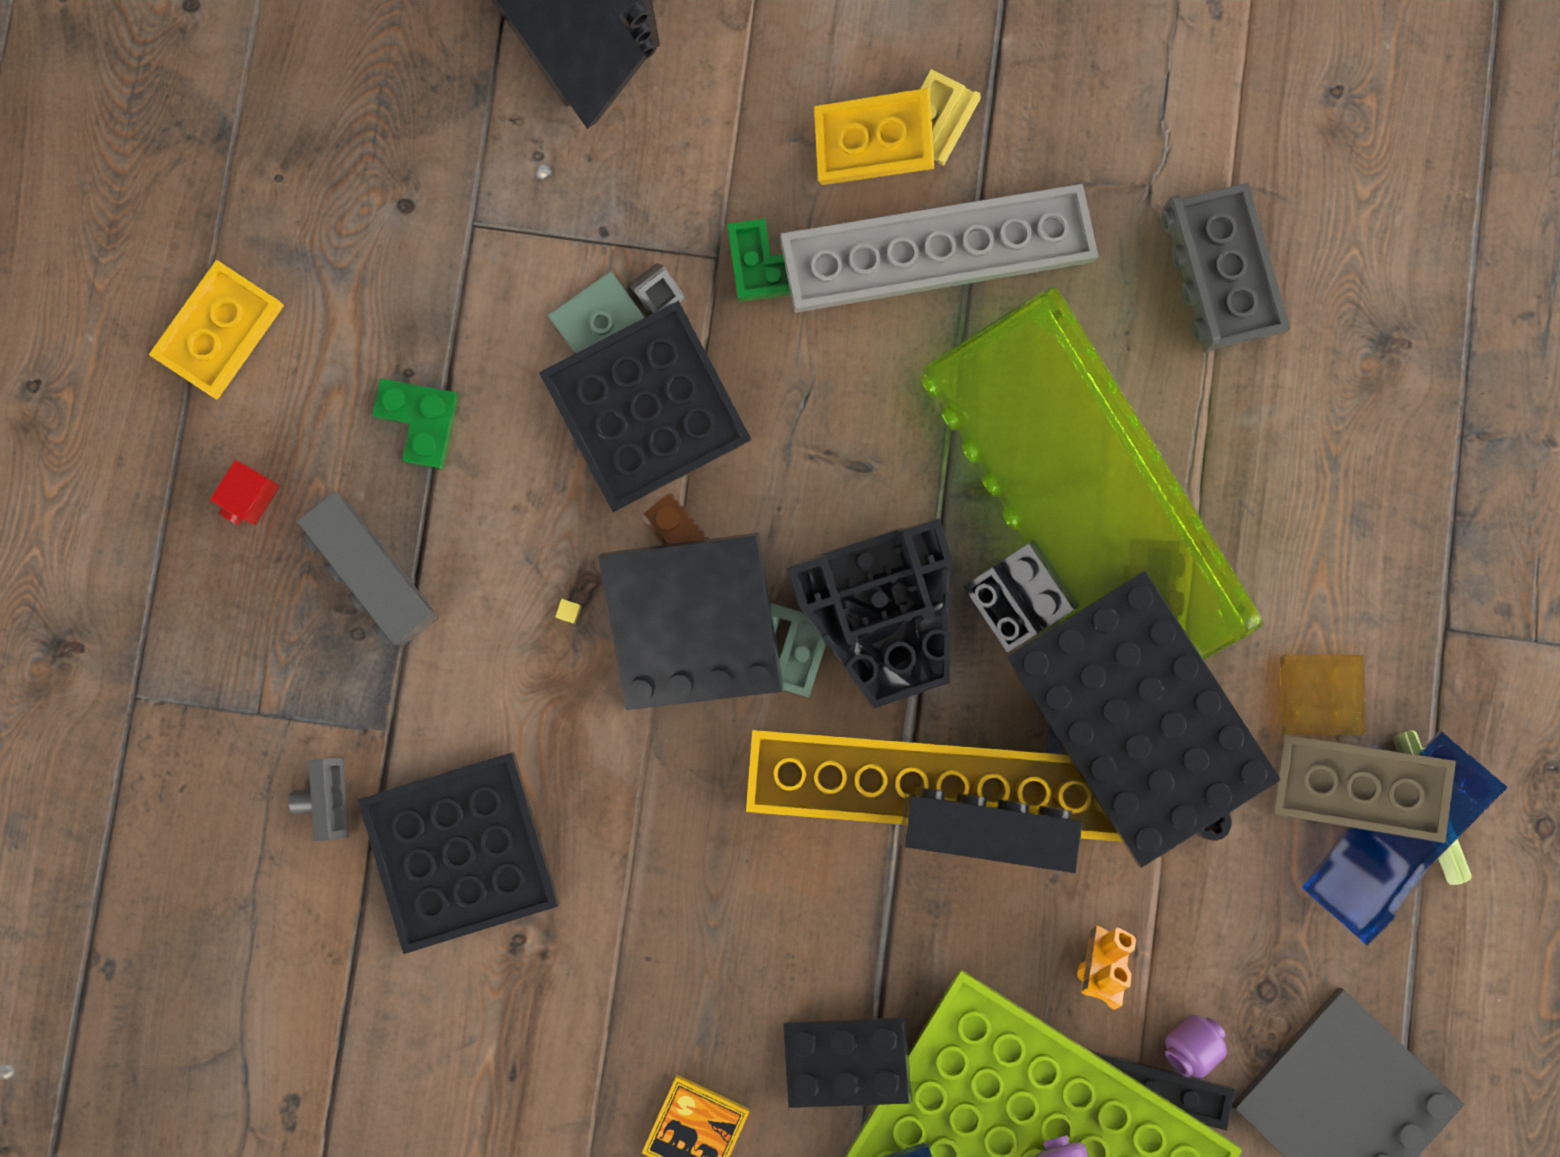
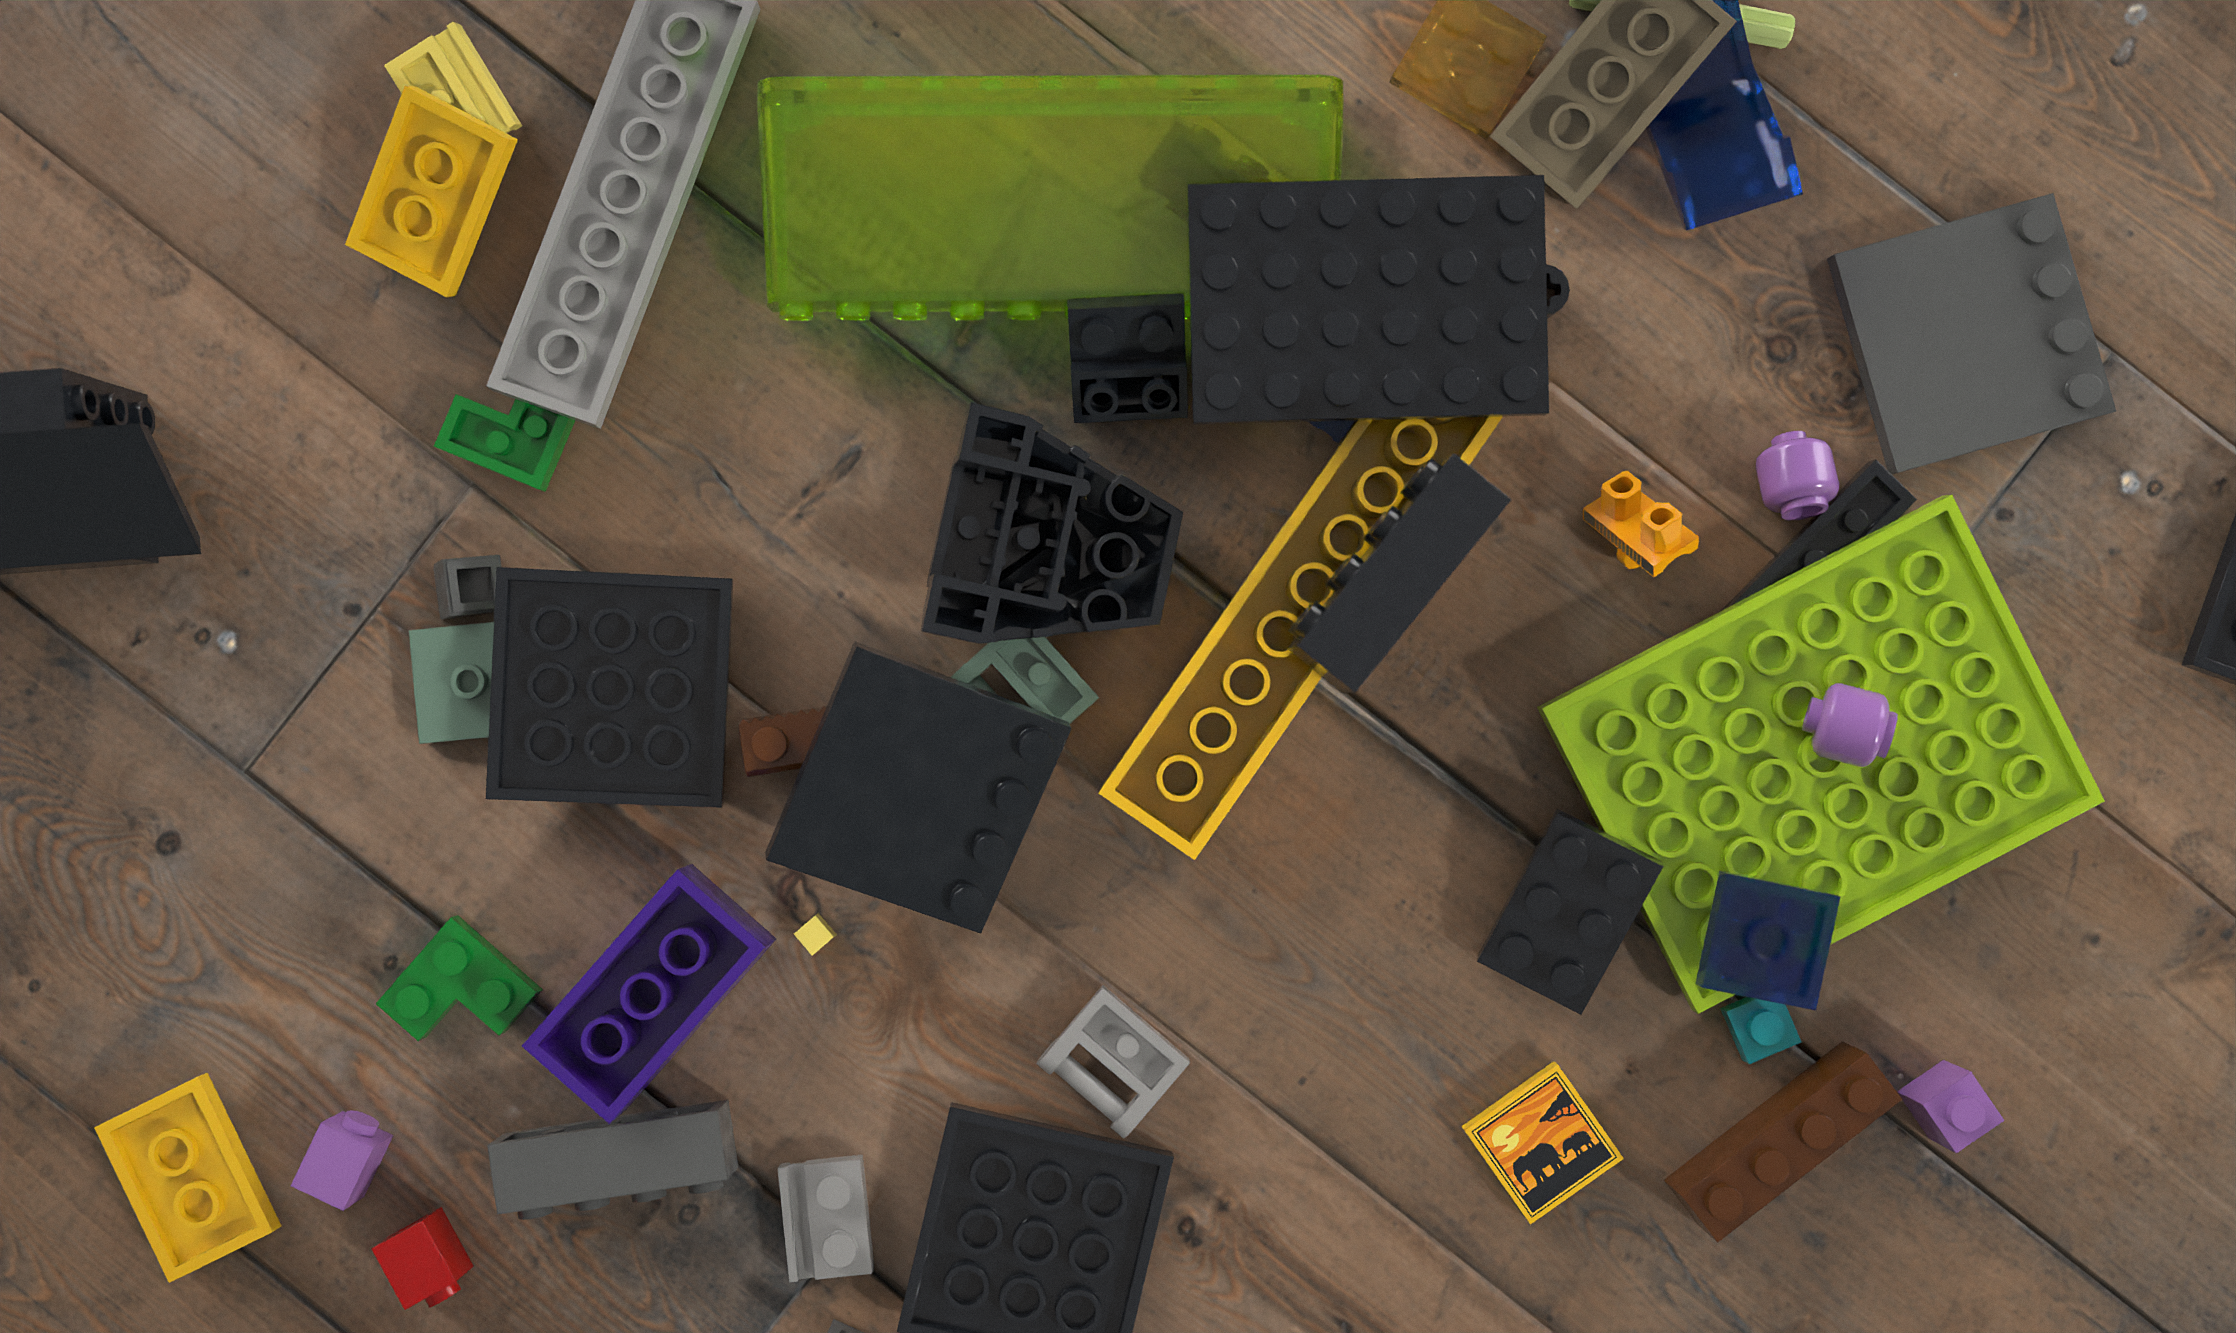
camera: 55 degrees left, 5 degrees up
(278, 412) = (342, 1159): none -> medium lavender brick
(401, 717) = (826, 1218): none -> light grey plate
(479, 533) = (649, 992): none -> dark purple brick
(607, 838) = (1126, 1048): none -> light grey plate

